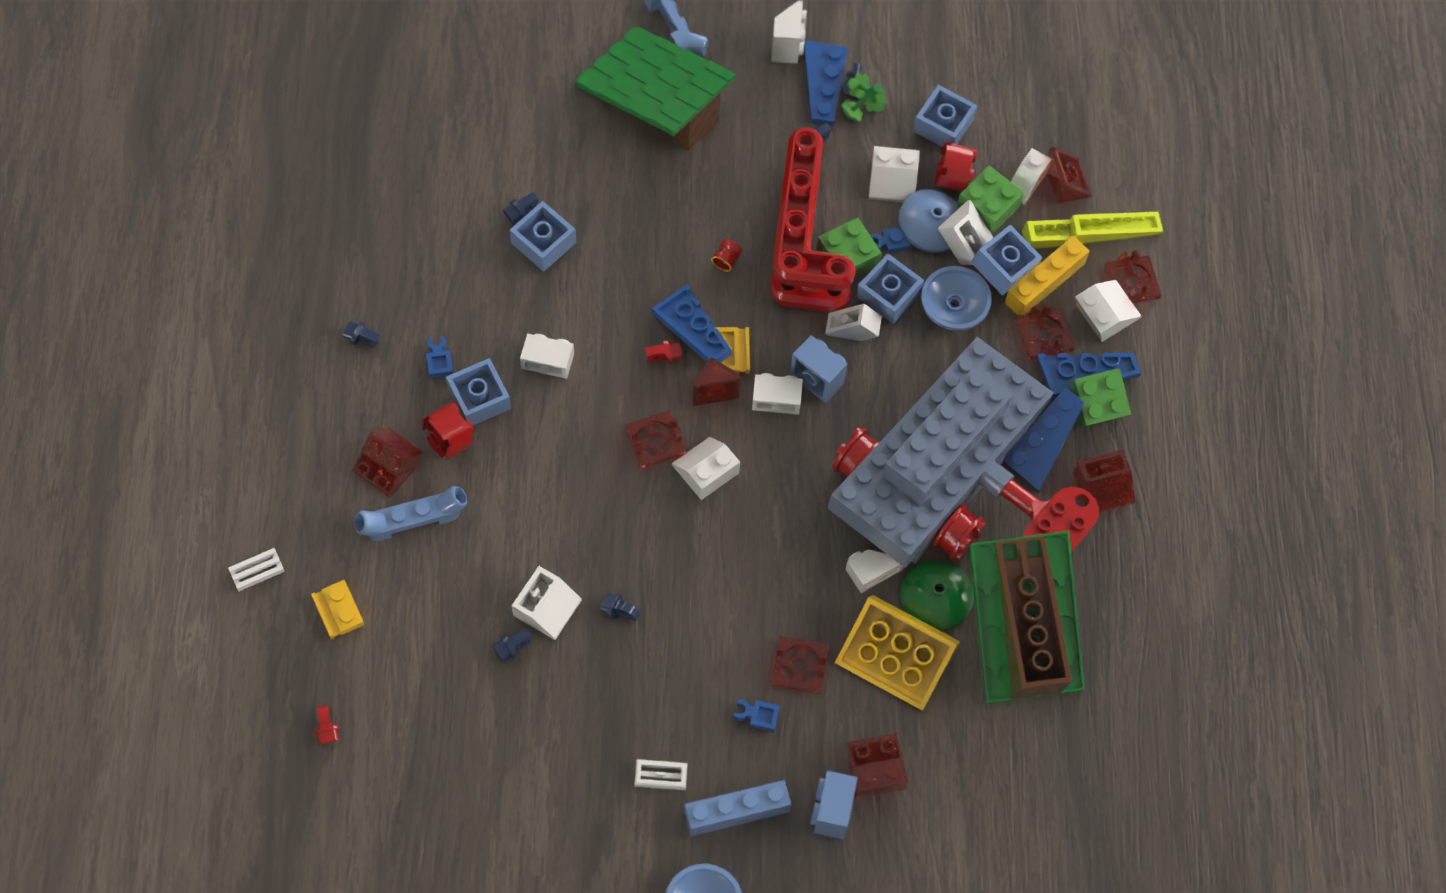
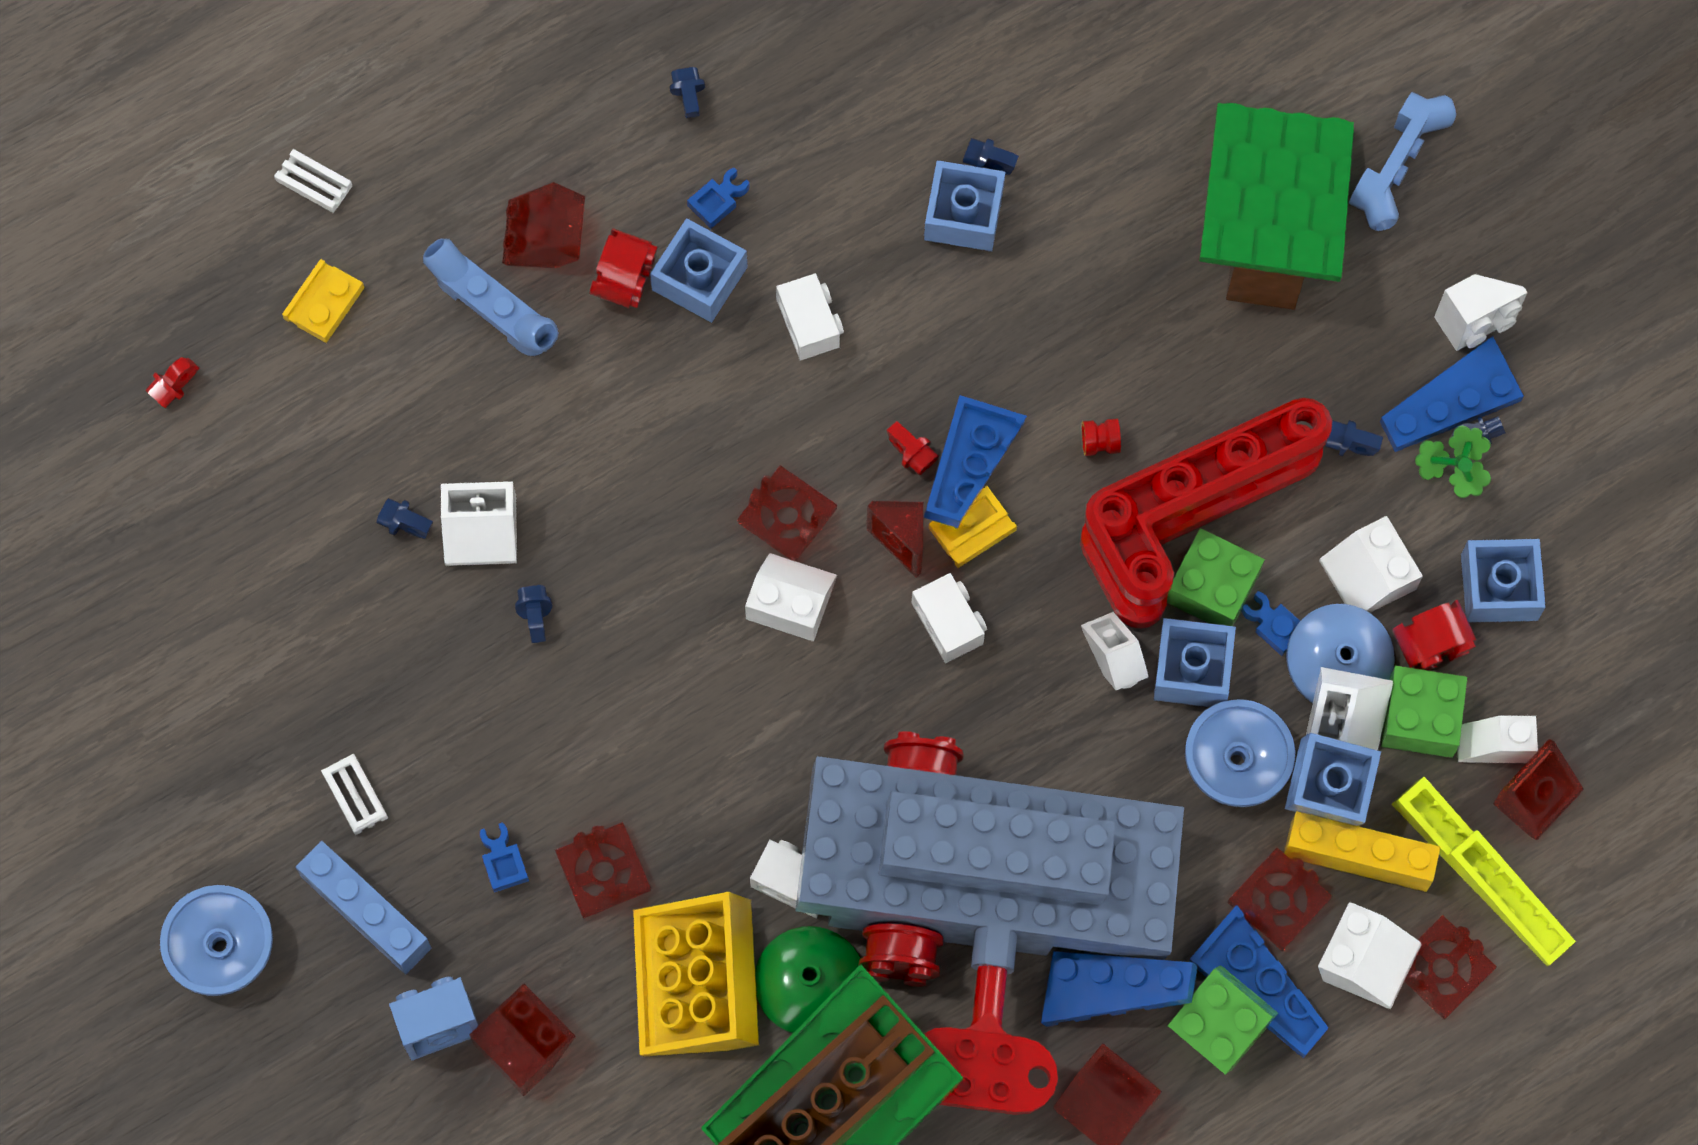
camera: 60 degrees right, 5 degrees up
(819, 368) = (1012, 652): medium blue brick -> none

